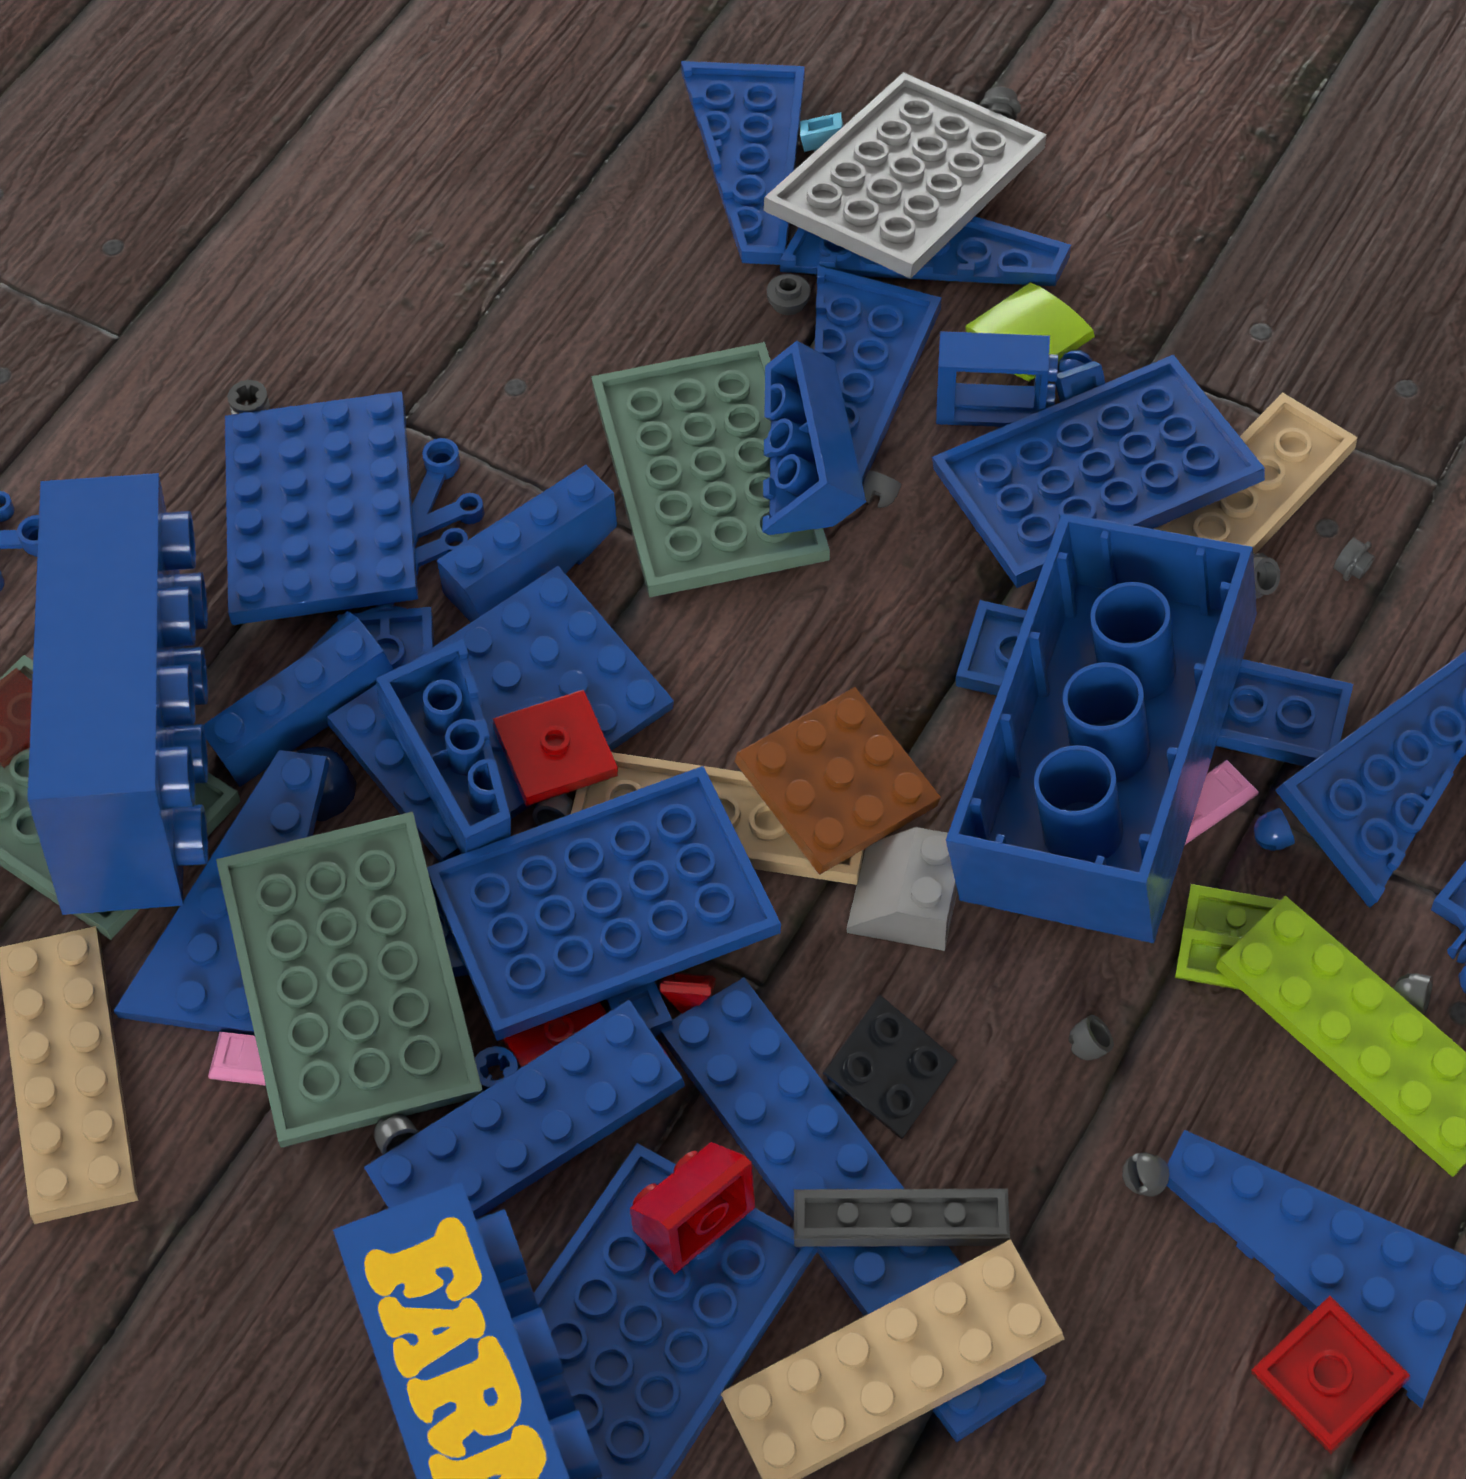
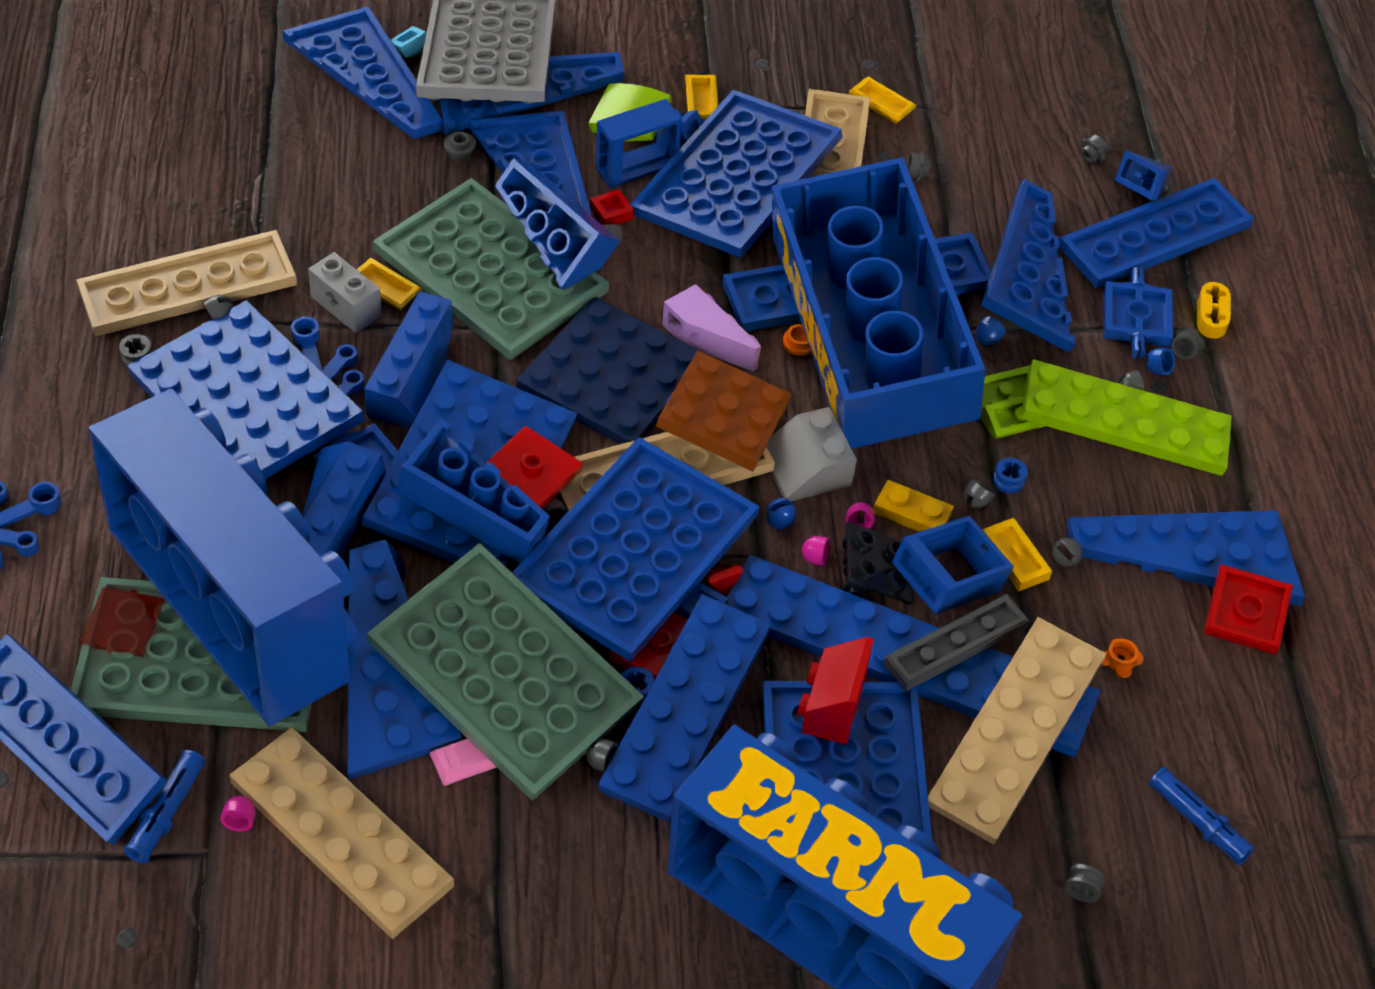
camera: 40 degrees left, 5 degrees down
(357, 341) = (185, 281): none -> tan plate
(364, 385) = (218, 306): none -> dark grey hinge
(514, 428) = (345, 292): none -> light grey brick
(574, 435) = (393, 287): none -> yellow tile
(753, 660) = (609, 371): none -> dark blue plate
(823, 949) = (783, 516): none -> blue hinge
(831, 1013) = (816, 550): none -> dark pink hinge
(905, 661) = (708, 328): none -> lavender slope
(909, 453) = (612, 208): none -> red plate
(909, 991) = (869, 517): none -> dark pink hinge
(980, 1075) = (931, 580): none -> blue window
(994, 1019) = (911, 507): none -> yellow plate
(1076, 1143) = (1018, 549): none -> yellow plate
(1117, 1334) = (1126, 650): none -> orange plate
(1138, 344) = (701, 94): none -> yellow tile
(1156, 1020) = (1010, 466): none -> blue bush
(1380, 446) = (883, 100): none -> yellow tile

